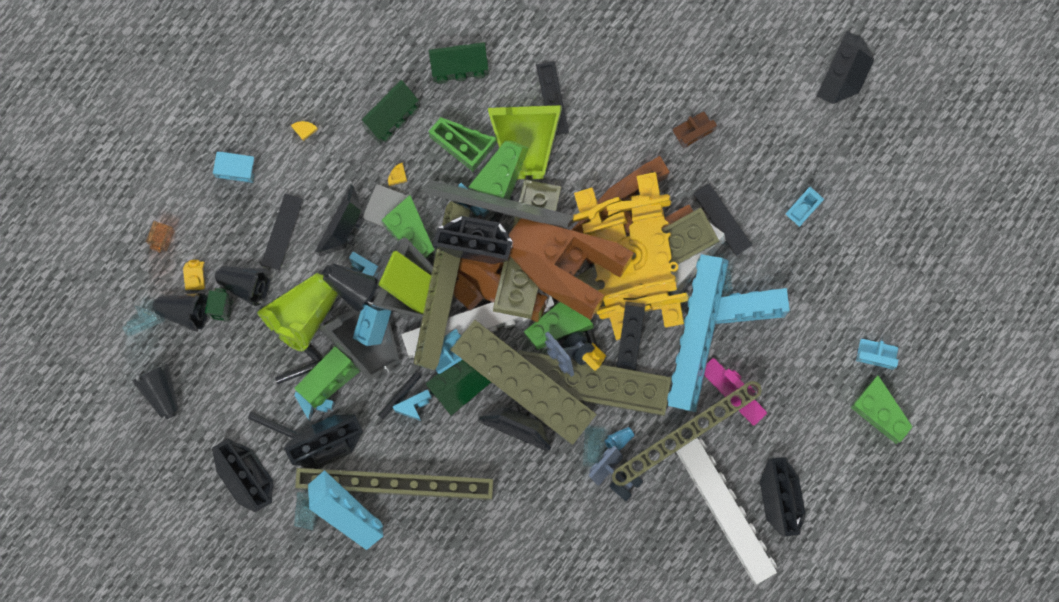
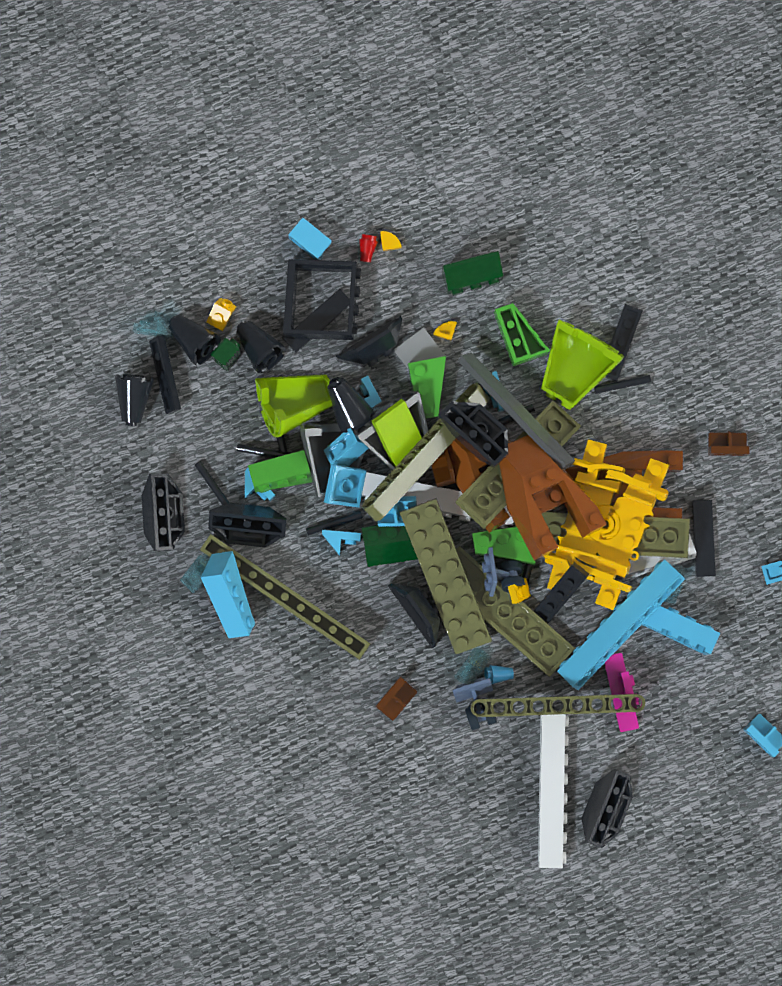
camera: 25 degrees right, 5 degrees up
(160, 236) = (211, 263): clear orange brick -> none
(176, 355) = (165, 374): none -> black tile
(259, 182) = (290, 299): none -> black window
(287, 143) = (367, 247): none -> red cone
(389, 357) = (345, 485): none -> medium azure tile
(458, 62) = (558, 263): dark green slope -> none
(501, 171) = (537, 382): bright green wedge -> none
(544, 514) = (396, 699): none -> reddish brown panel
(573, 133) = (622, 384): none -> black bar
(882, 411) = (737, 785): bright green wedge -> none

